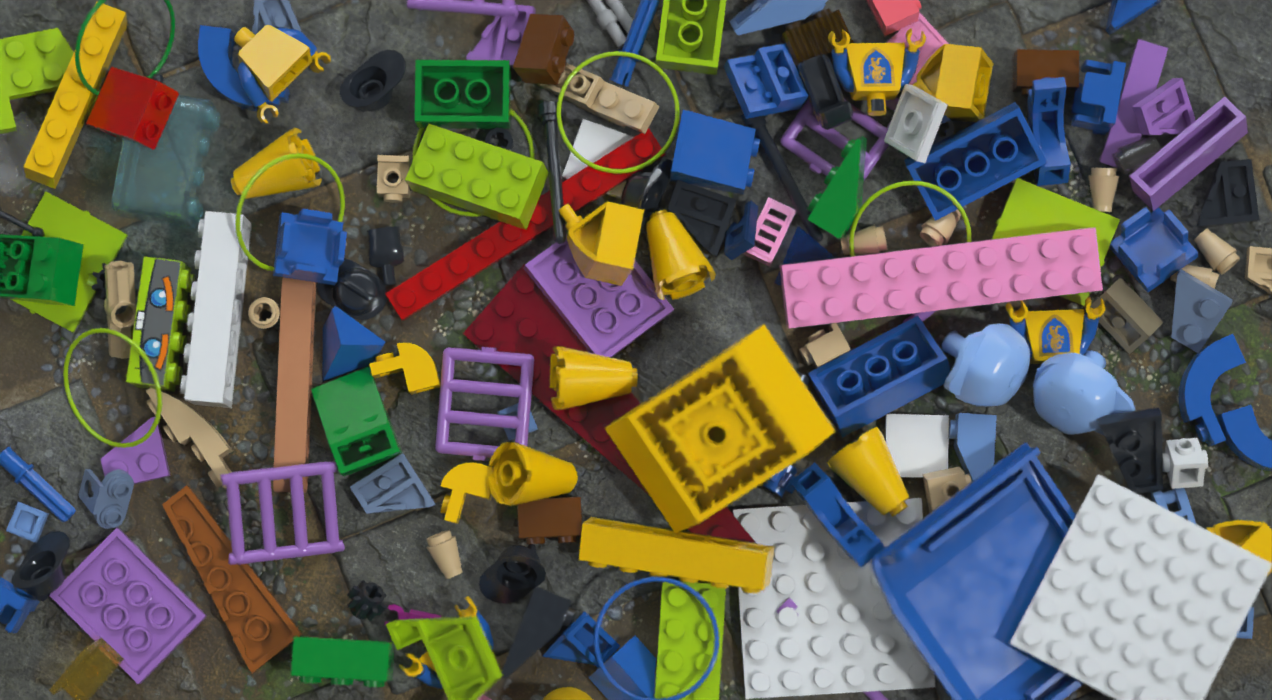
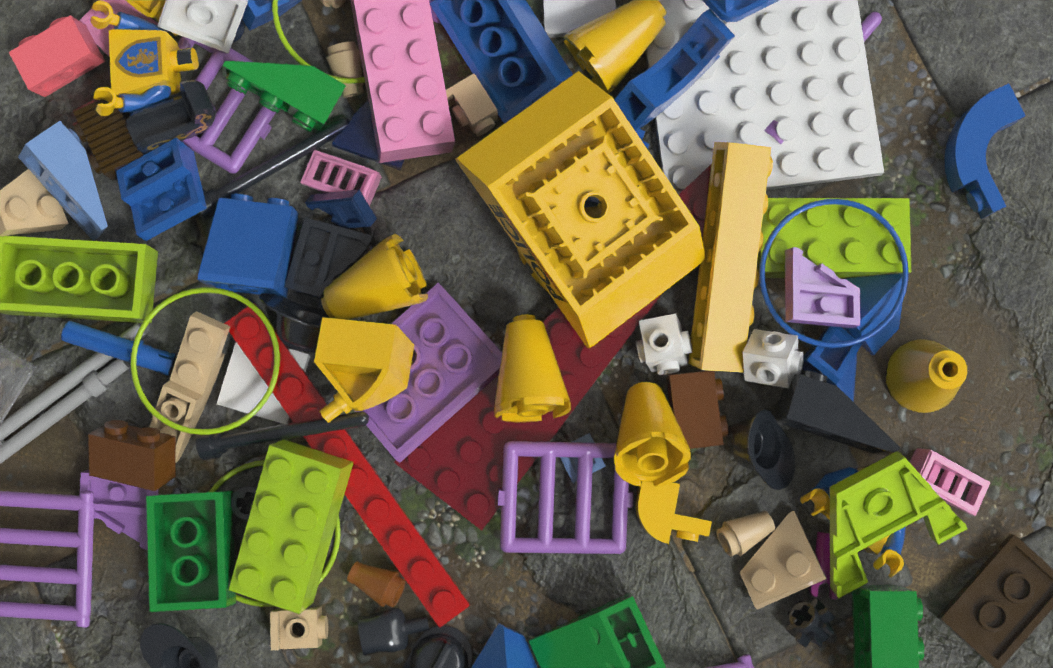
camera: 90 degrees left, 0 degrees up
(392, 488) = (673, 601): sand blue wing -> none
(414, 361) = (520, 585): yellow brick -> none
(416, 582) = (782, 564): none -> tan wing
(424, 246) = (379, 584): none -> dark orange cone
(588, 583) = (772, 358): none -> white brick
(607, 495) = (663, 344): none -> white brick
(637, 624) = (817, 294): none -> wing

